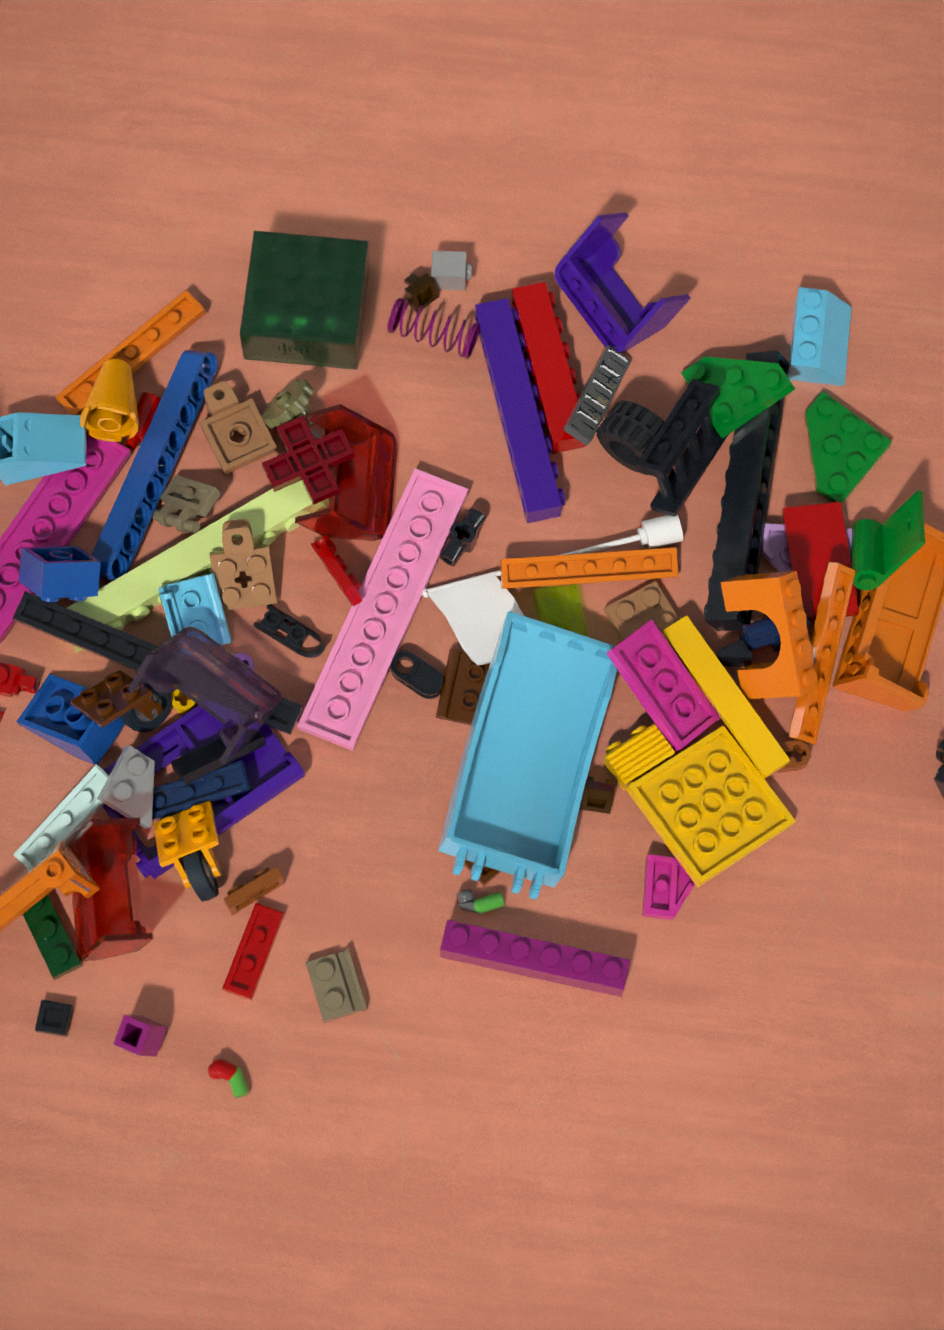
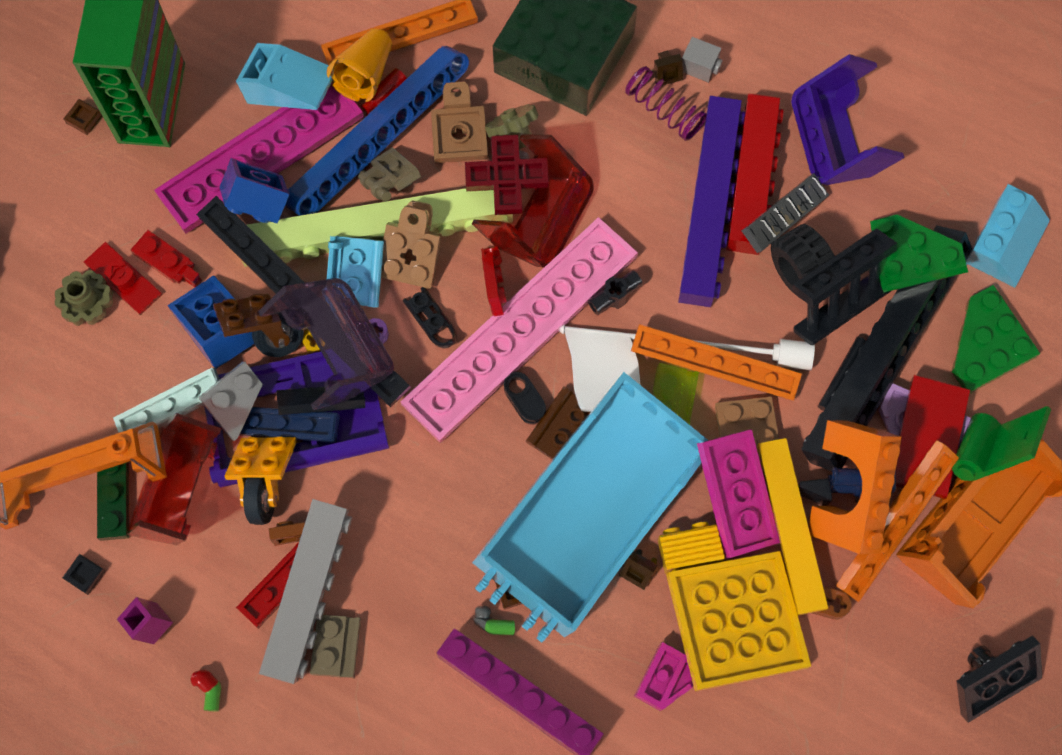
camera: 25 degrees right, 0 degrees up
(287, 942) = (305, 591): none -> light grey brick
(715, 516) = (839, 376): none -> black bar

